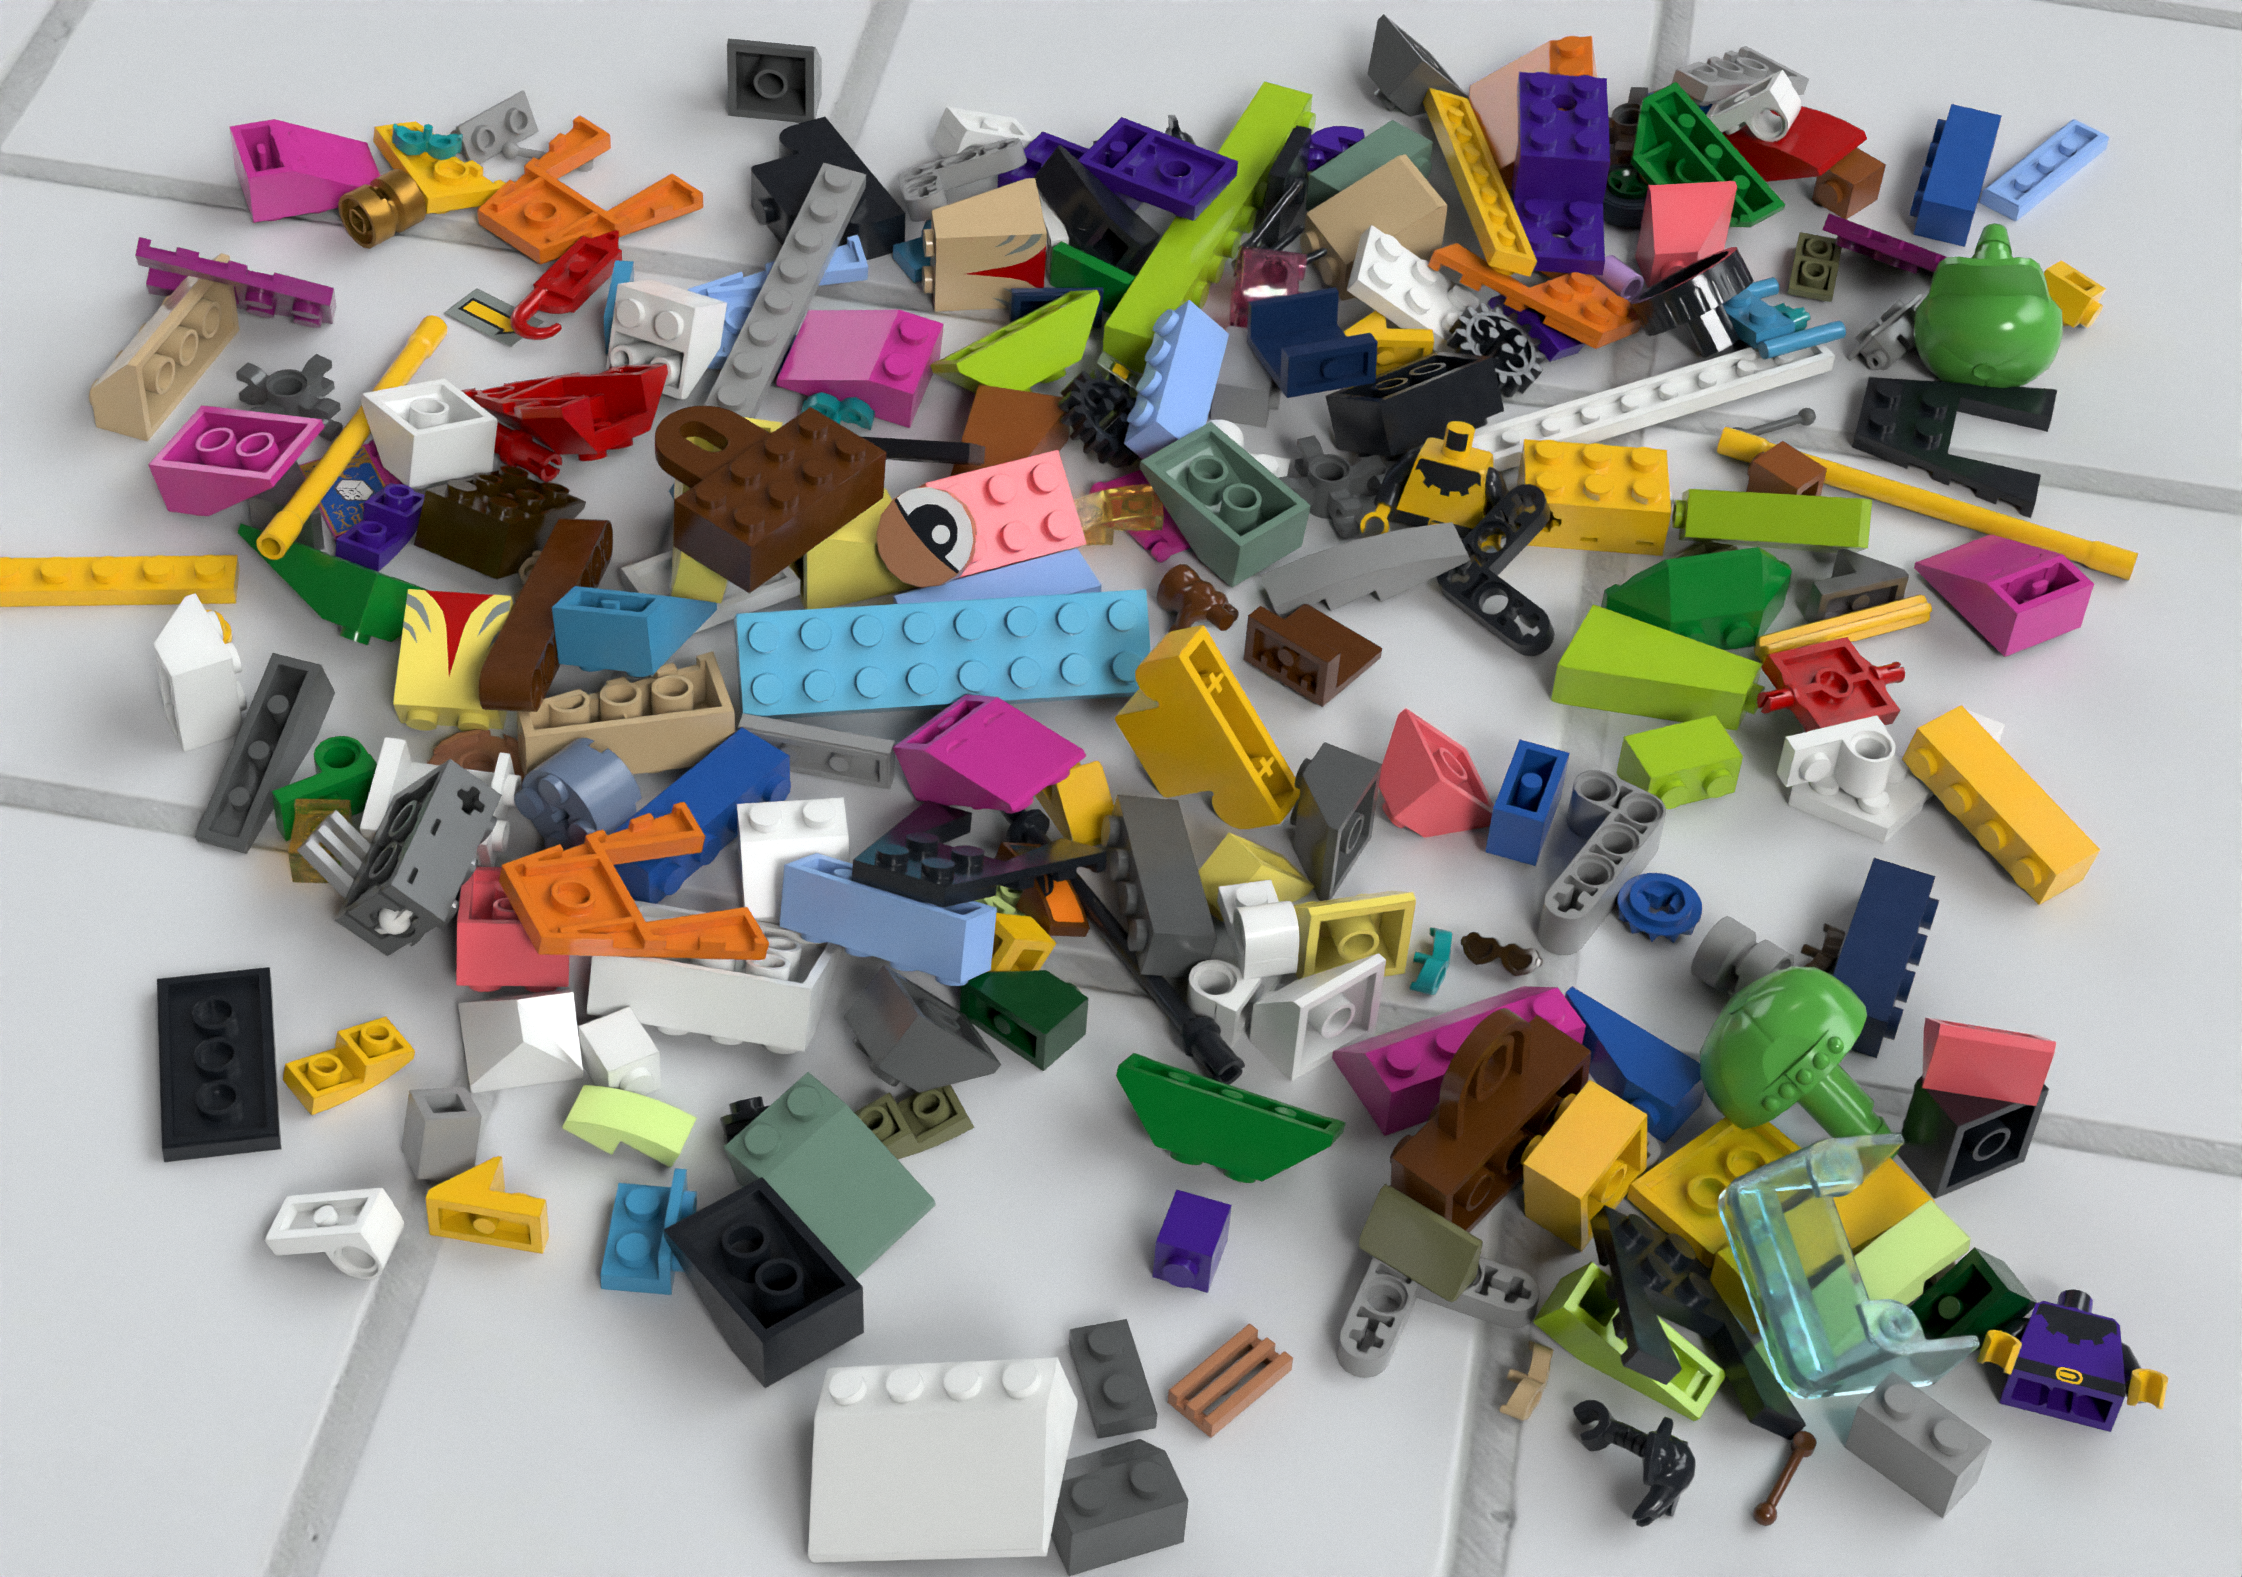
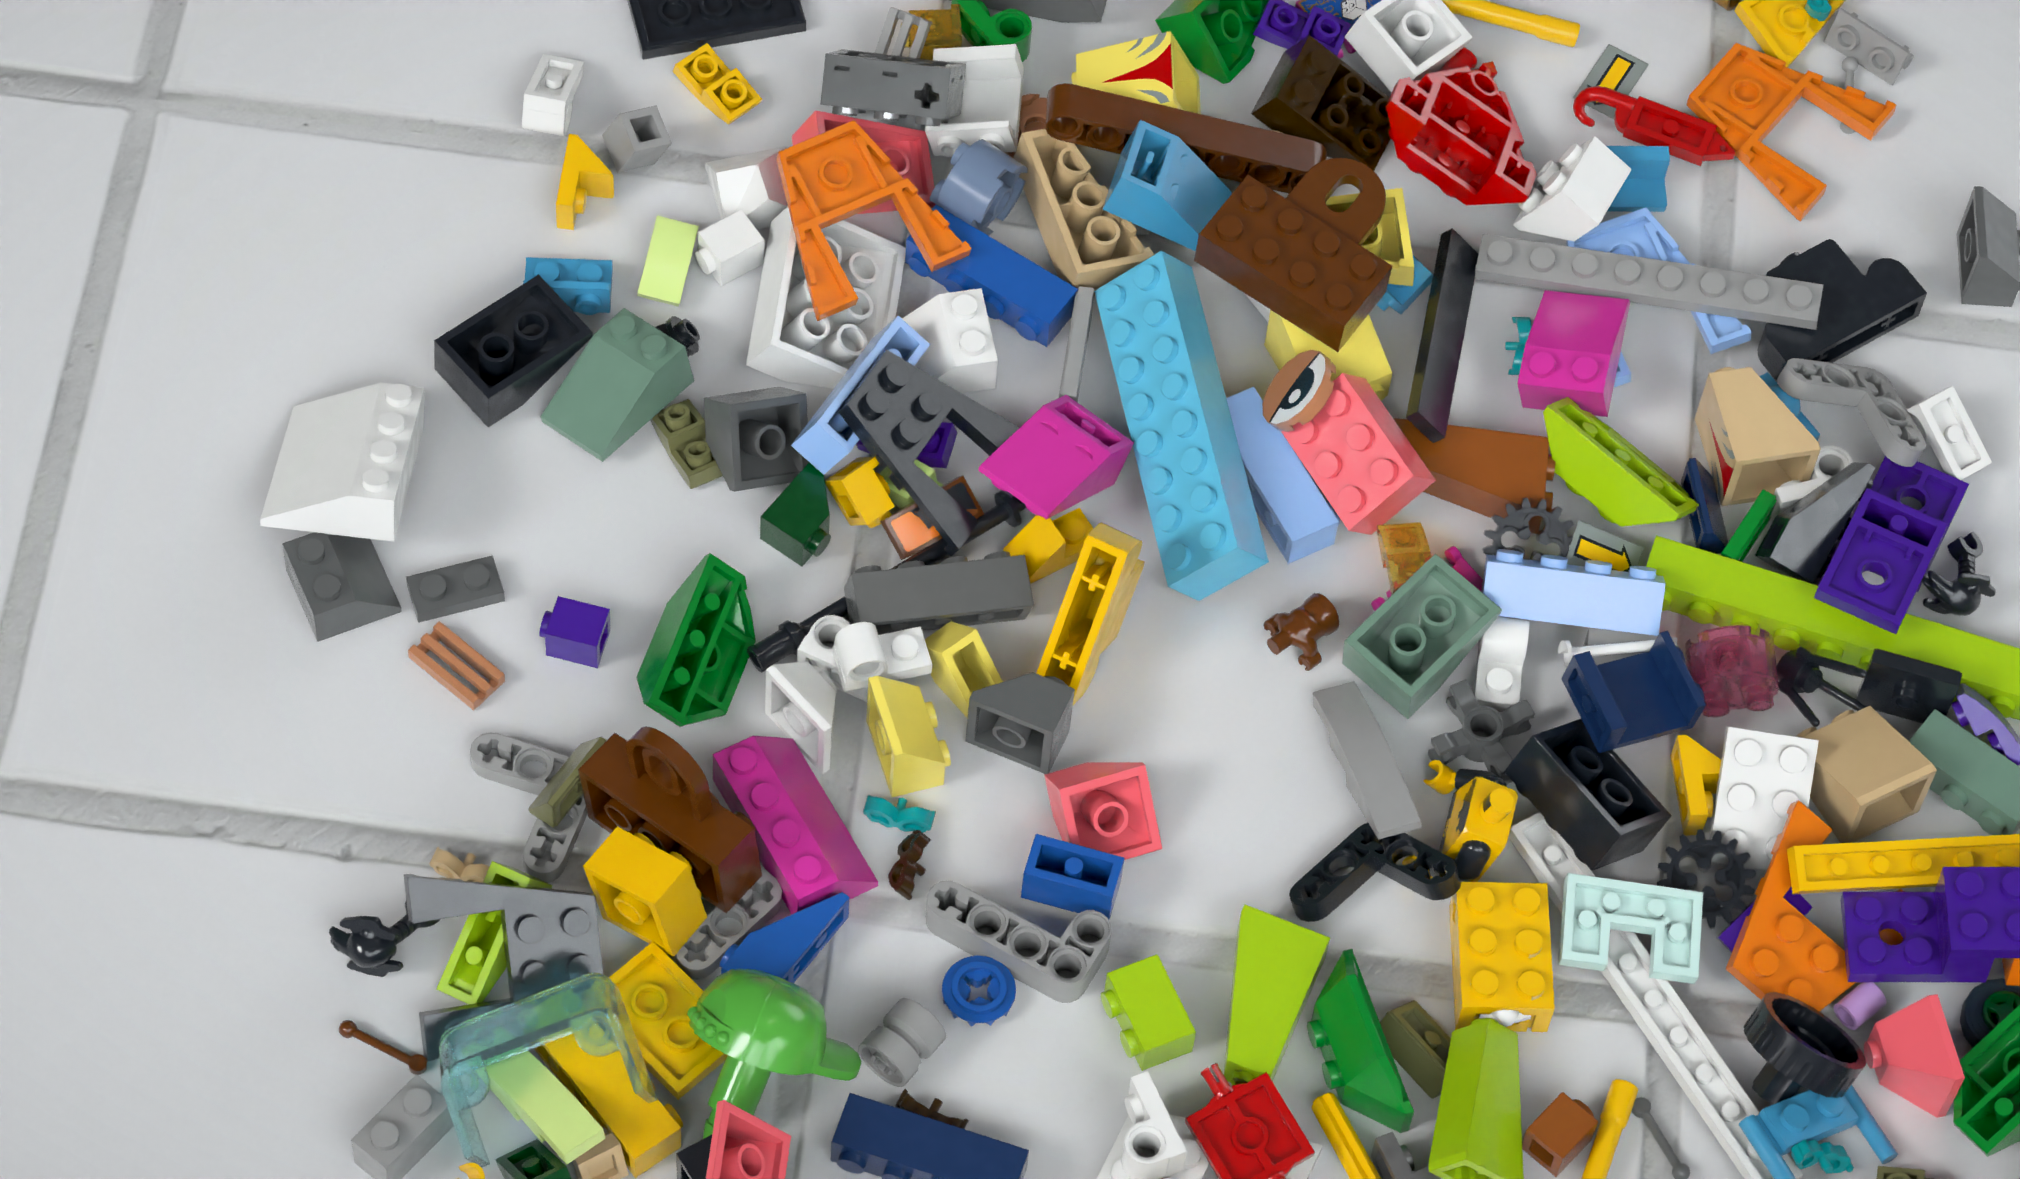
camera: 85 degrees right, 15 degrees up
(1248, 396) = (1604, 649): none -> white piece
(1308, 651) = (1255, 719): reddish brown bracket -> none
(1542, 391) = (1601, 904): none -> light aqua plate

